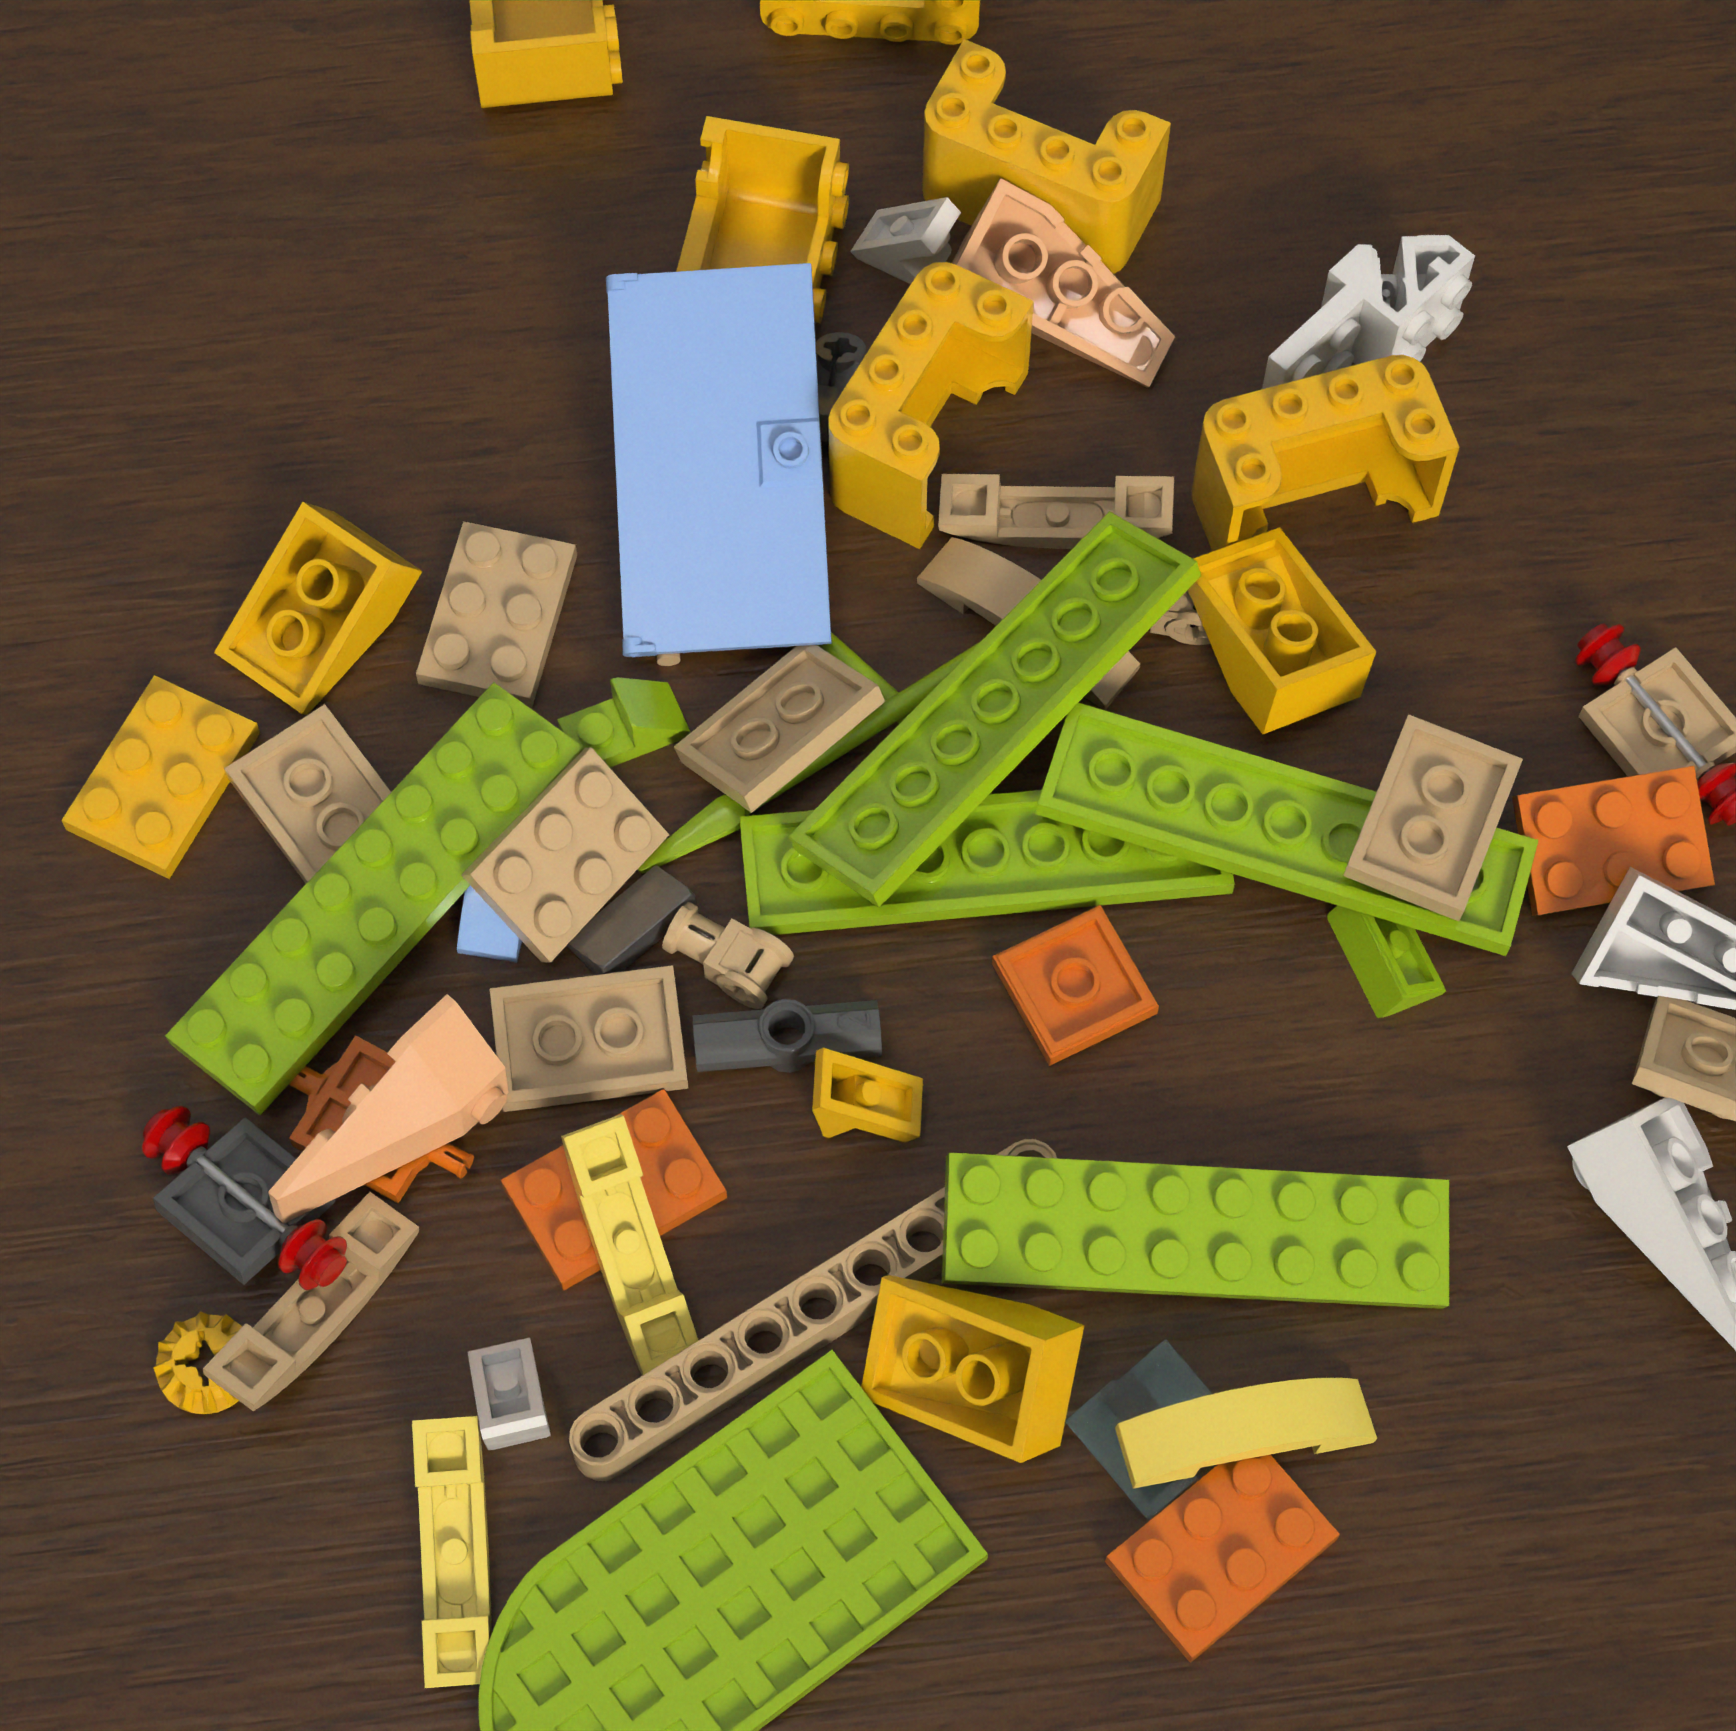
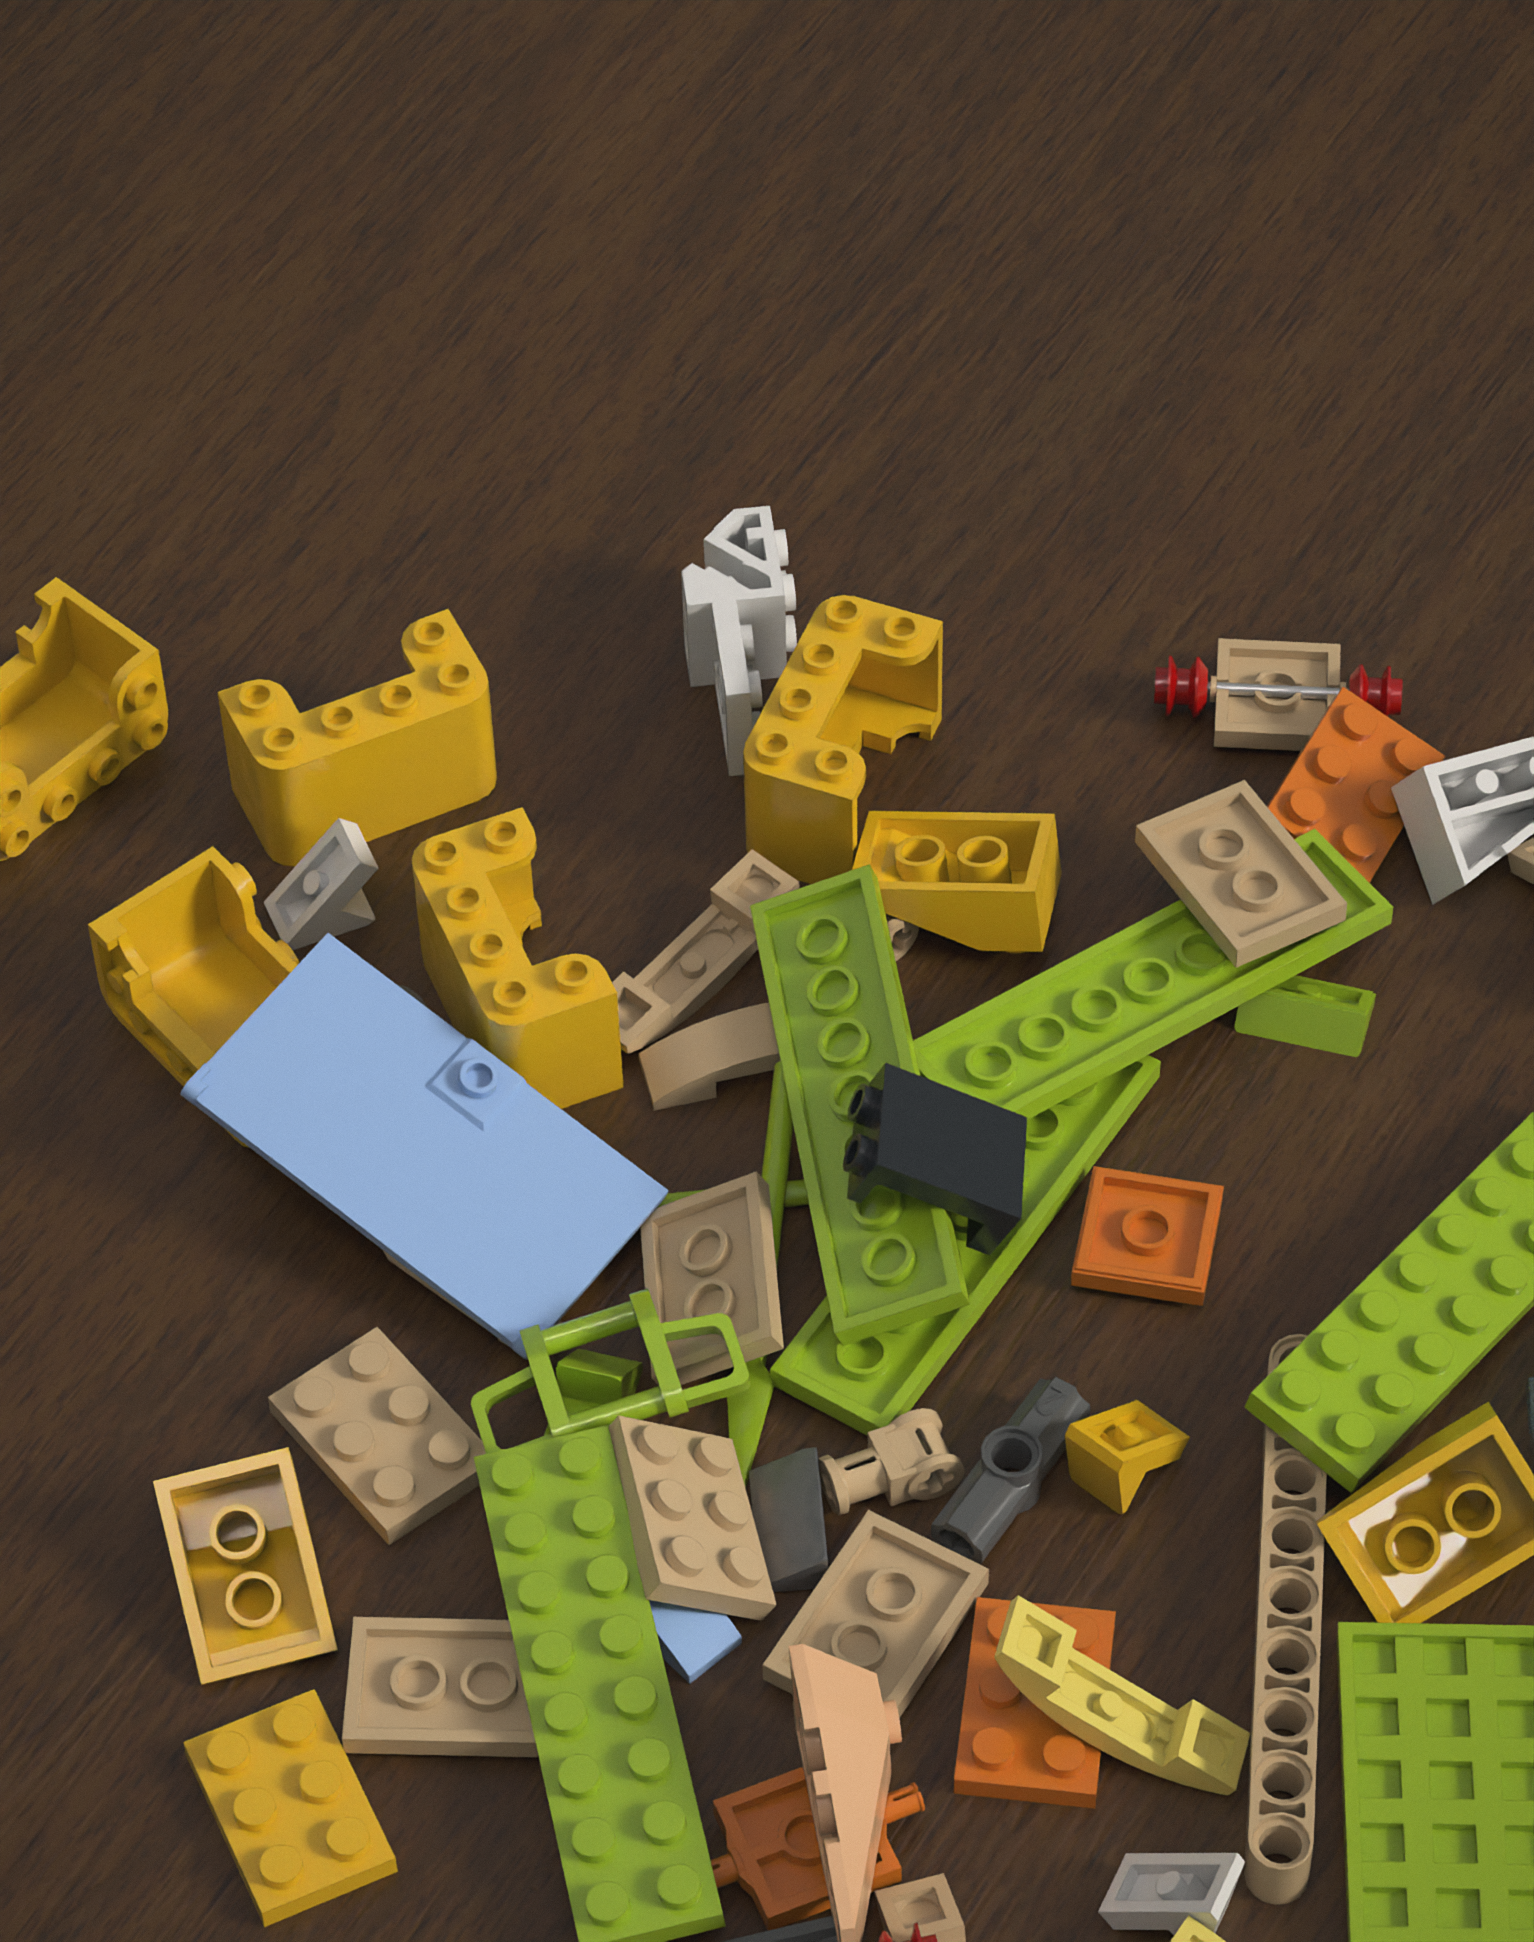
camera: 50 degrees left, 15 degrees down
(693, 707) = (642, 1405): none -> lime bar
(981, 791) = (938, 1150): none -> black panel
(1074, 295) = (432, 794): light nougat wedge -> none

